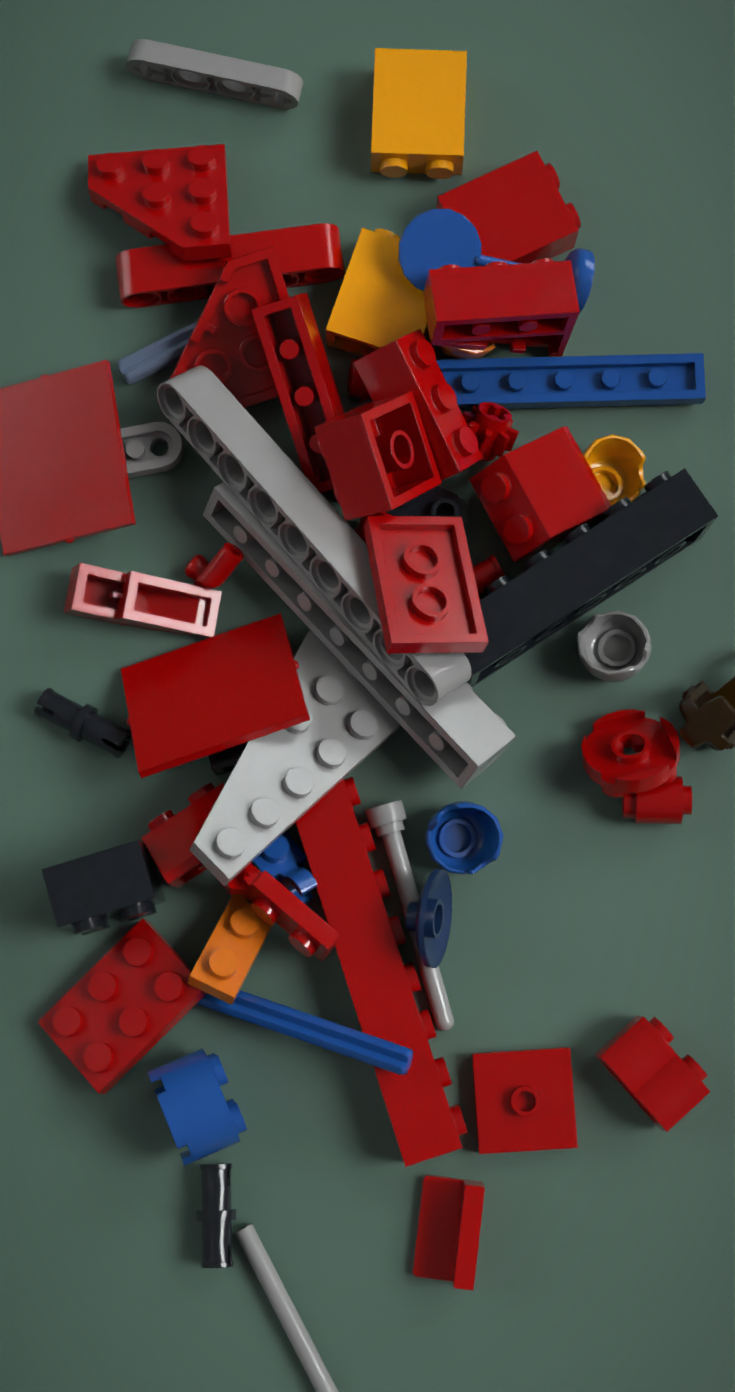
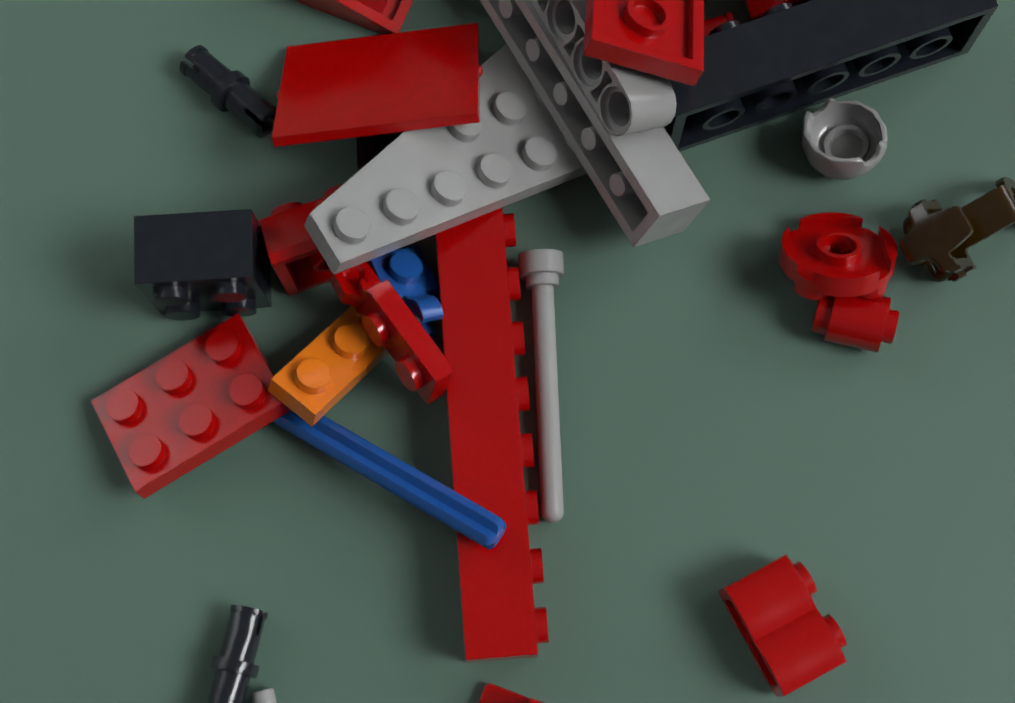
camera: 15 degrees right, 5 degrees down
(197, 1106) = (240, 531): blue brick -> none
(432, 918) = (566, 385): dark blue dish -> none
(463, 837) = (624, 307): blue hair -> none
(524, 1100) = (624, 623): red plate -> none

